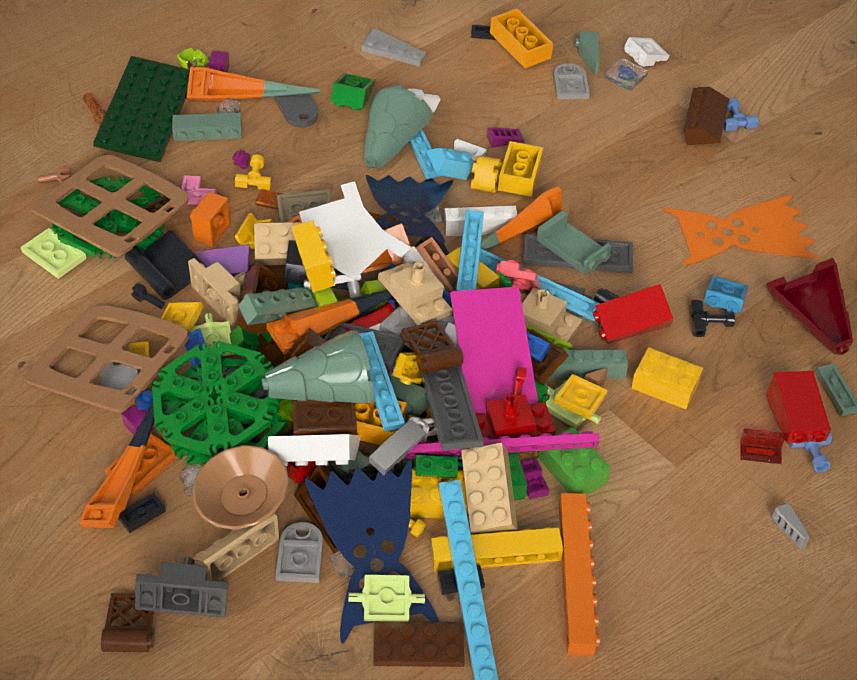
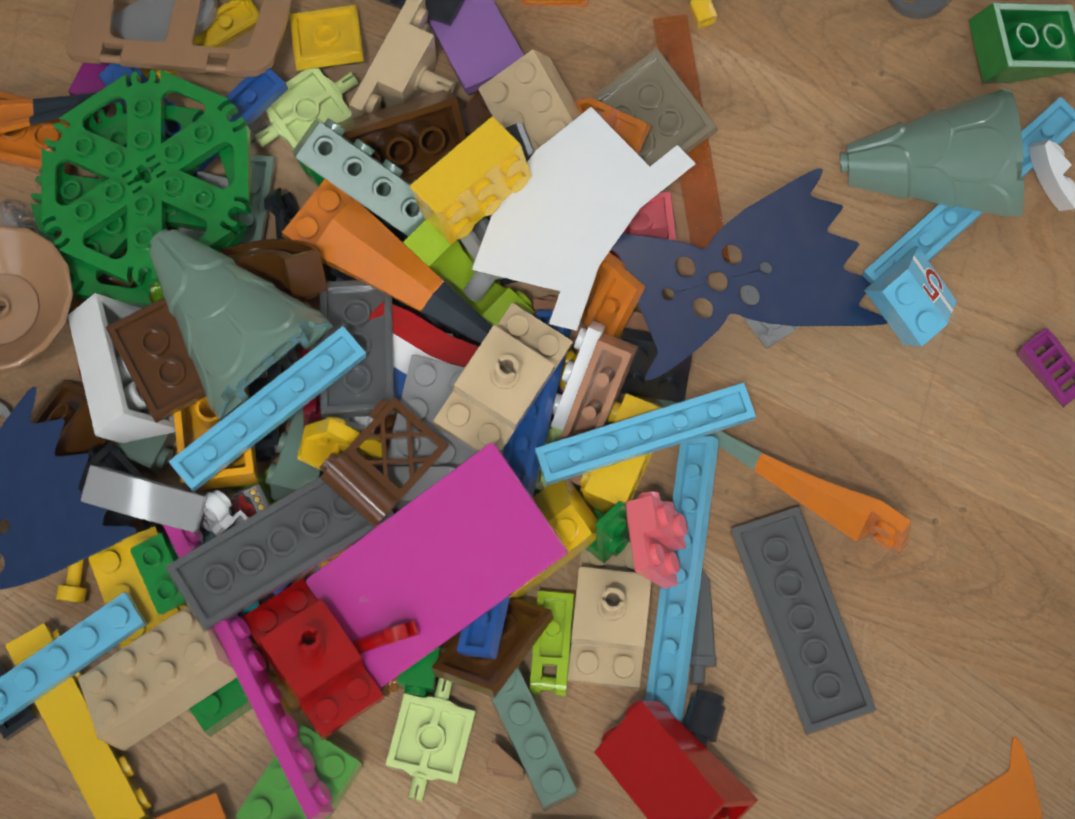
camera: 70 degrees right, 25 degrees up
(246, 232) = (575, 50): yellow bracket -> none
(474, 150) = (951, 343): white bracket -> none
(486, 174) = (910, 377): yellow brick -> none
(494, 218) = (803, 408): white slope -> none
(520, 169) = (963, 432): yellow brick -> none
(535, 482) = (240, 741): magenta slope -> none
(572, 244) = (804, 604): sand green panel -> none
(580, 396) = (435, 751): yellow plate -> none

